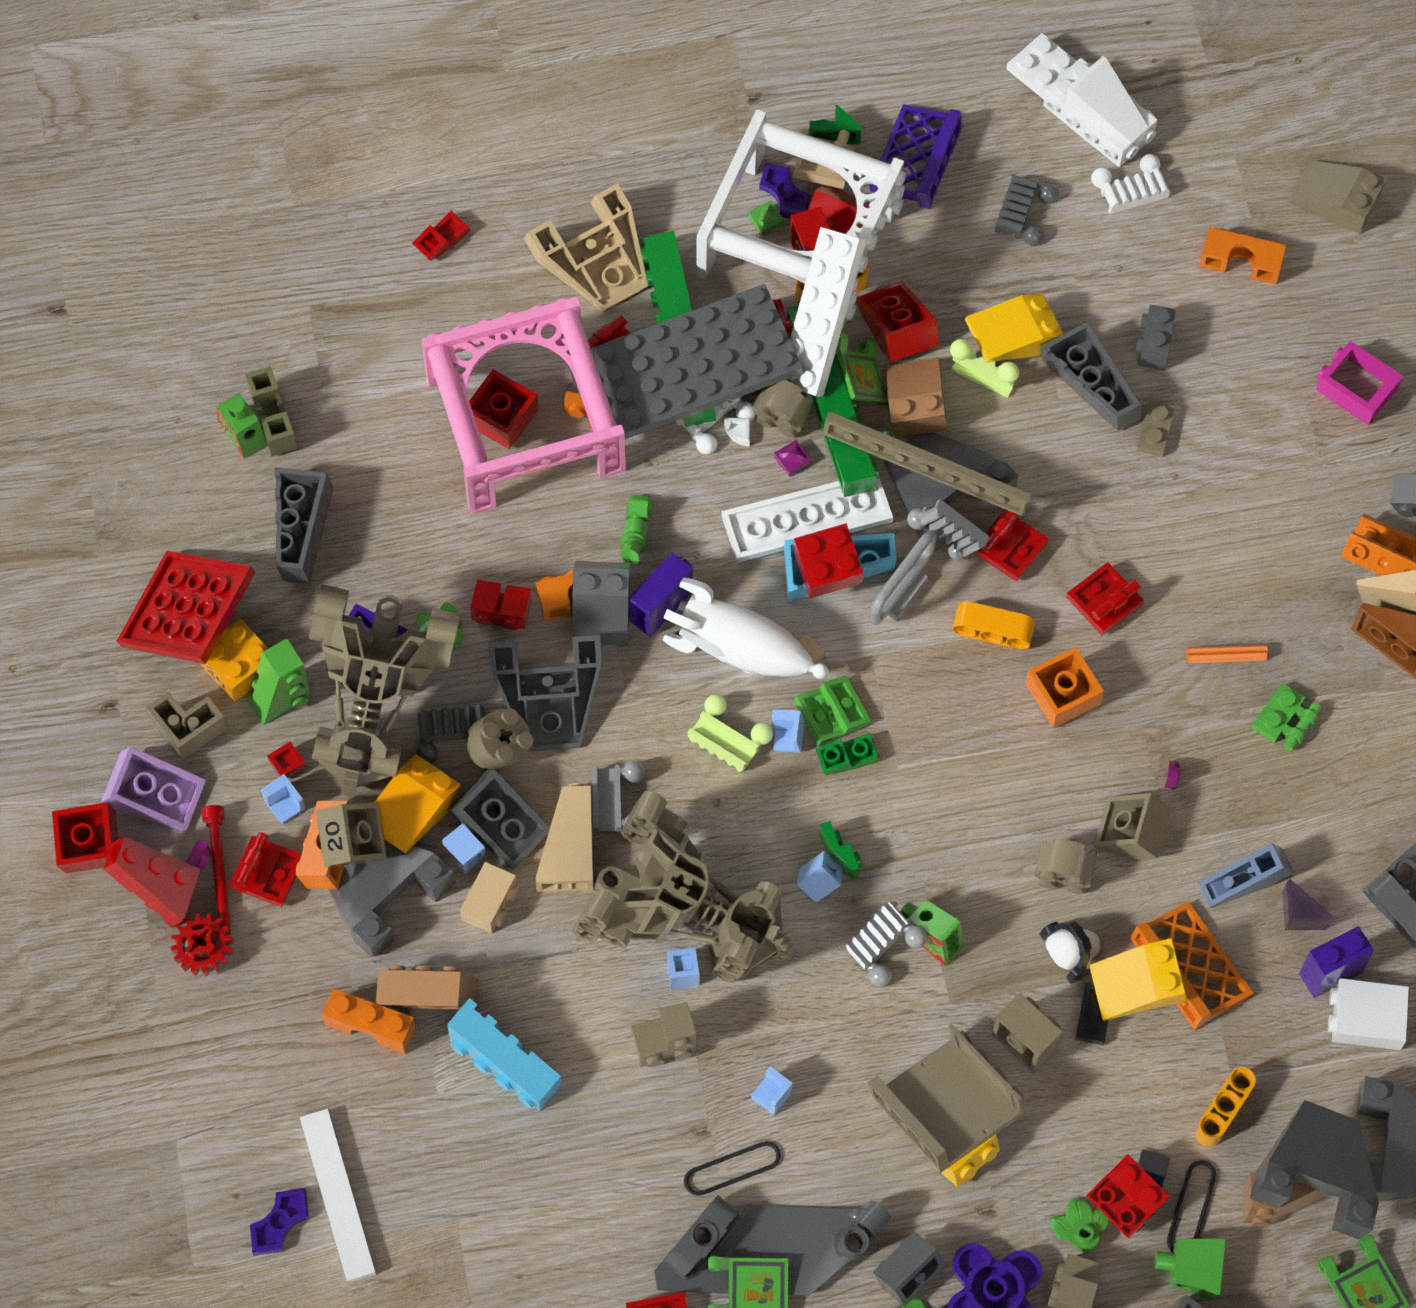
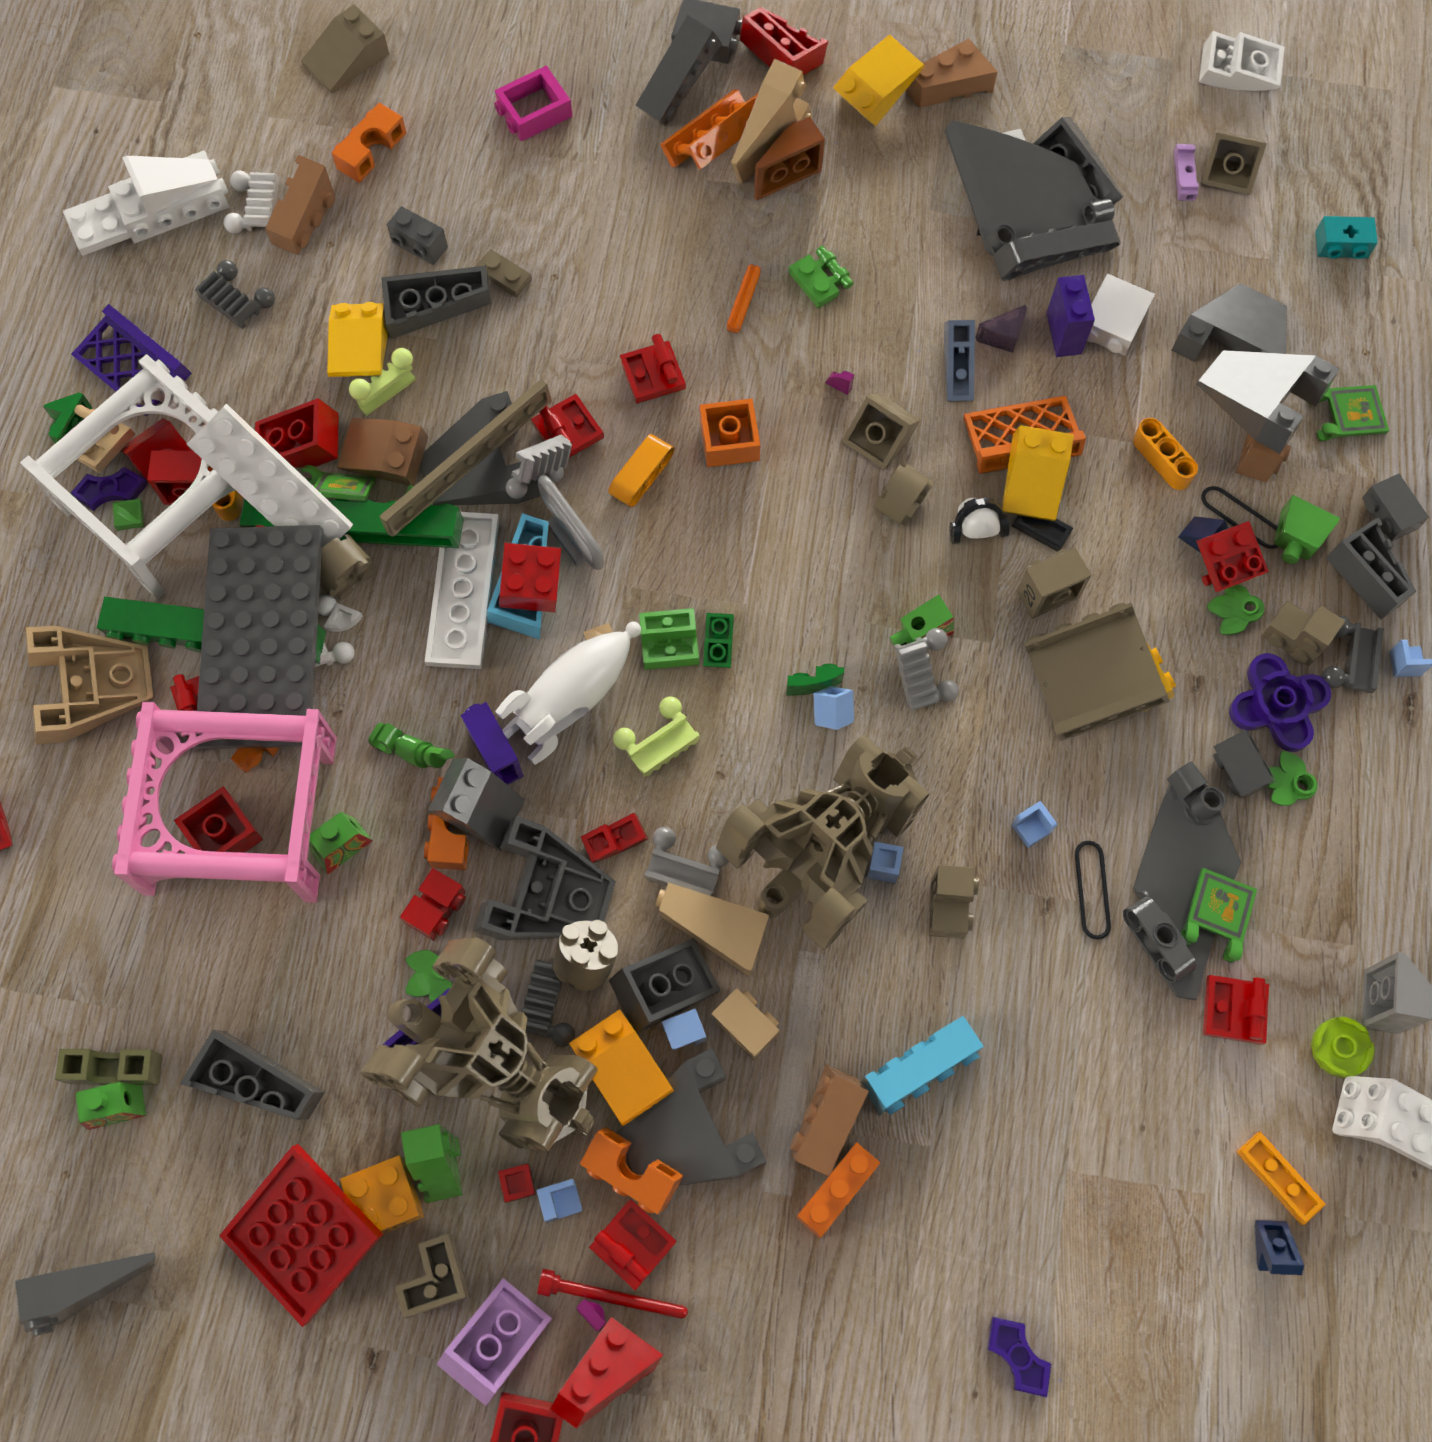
camera: 70 degrees left, 5 degrees up
(83, 455) = (61, 1294): none -> dark grey wedge
(195, 935) = (679, 1351): red gear -> none
(337, 1196) = (1009, 1285): white tile -> none
(351, 834) = (643, 1139): dark tan brick -> none
(525, 504) = (337, 841): none -> bright green torso
(619, 731) = (614, 838): none -> red slope
(788, 731) = (677, 683): light blue panel -> none
(792, 458) = (394, 581): magenta tile -> none
(1138, 227) = (302, 207): none -> medium nougat wedge

